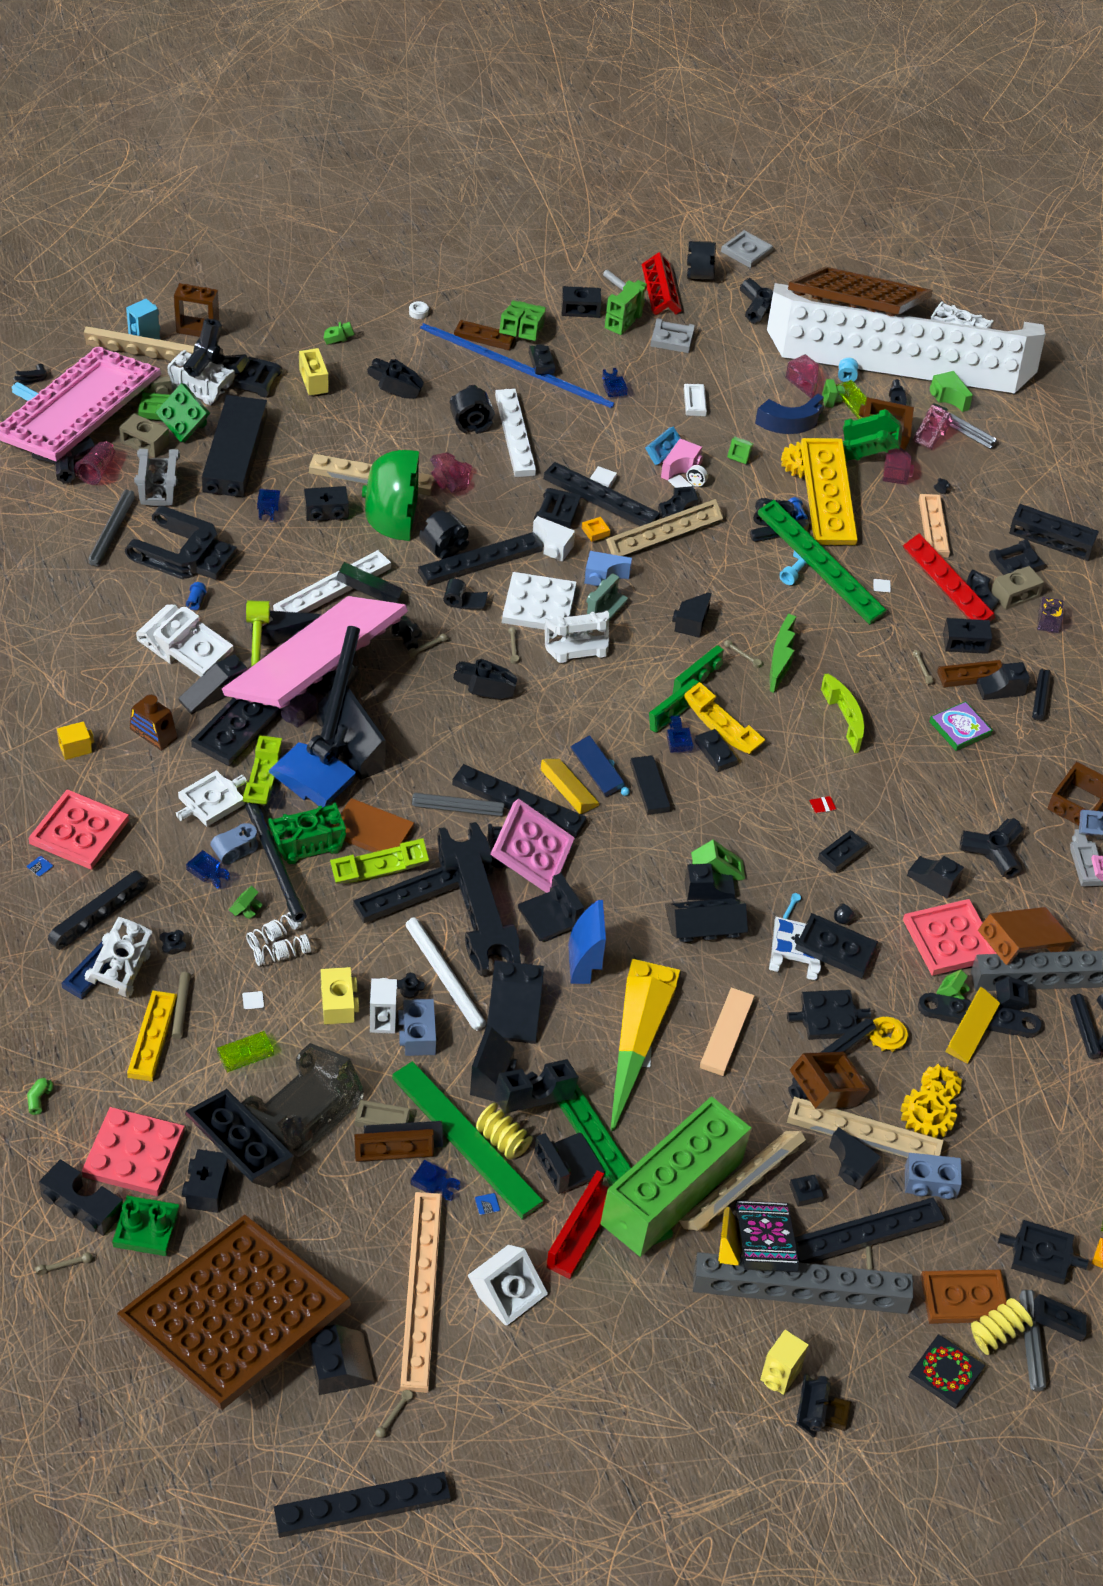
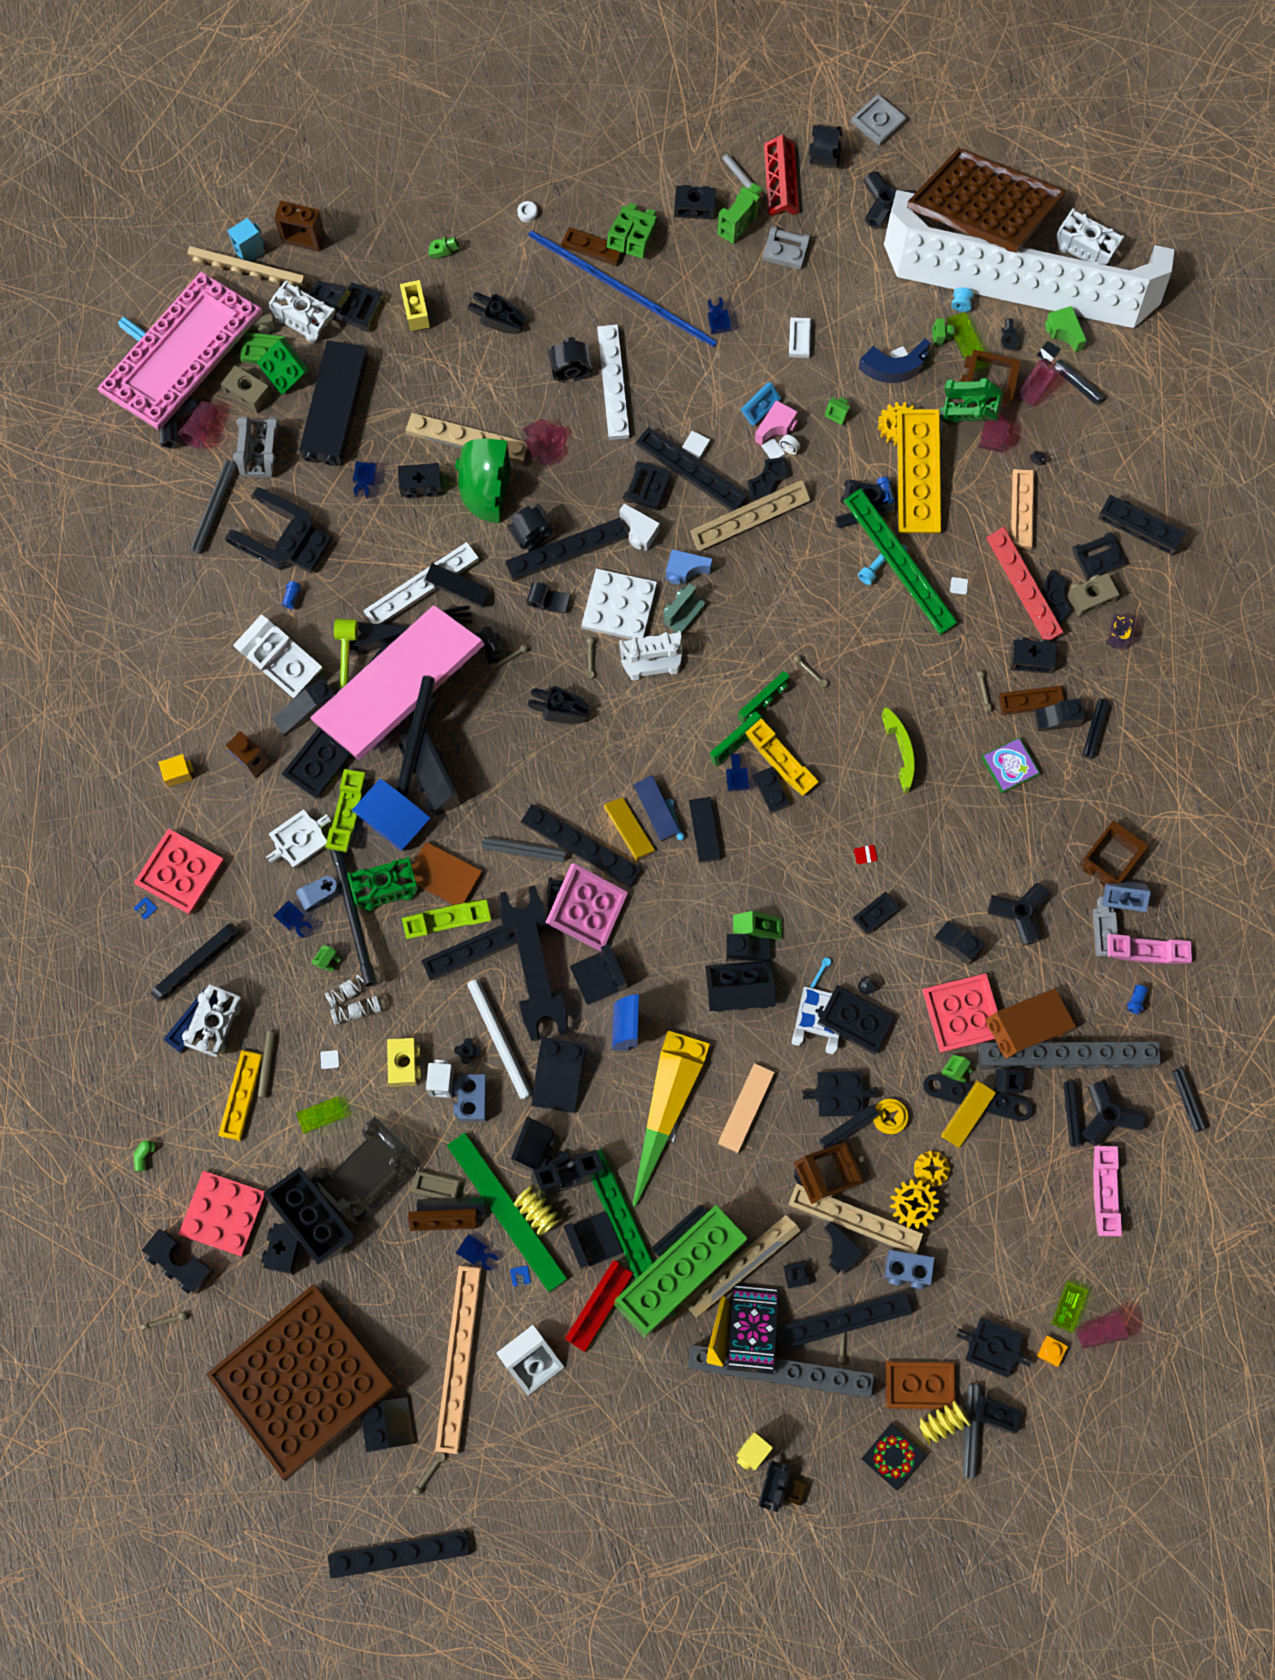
camera: 10 degrees right, 25 degrees up
(32, 376) = (137, 308): black piece -> none
(146, 1225) = (231, 1290): green plate -> none
(172, 947) = (264, 1002): black plate -> none
(205, 349) = (305, 291): black piece -> none
(328, 749) = (405, 795): black piece -> none
(541, 359) = (647, 283): black plate -> none
(596, 529) = (682, 514): light orange plate -> none
(692, 615) = (765, 626): black slope -> none
(783, 652) = (847, 680): bright green slope -> none
(803, 374) = (915, 305): clear pink slope -> none

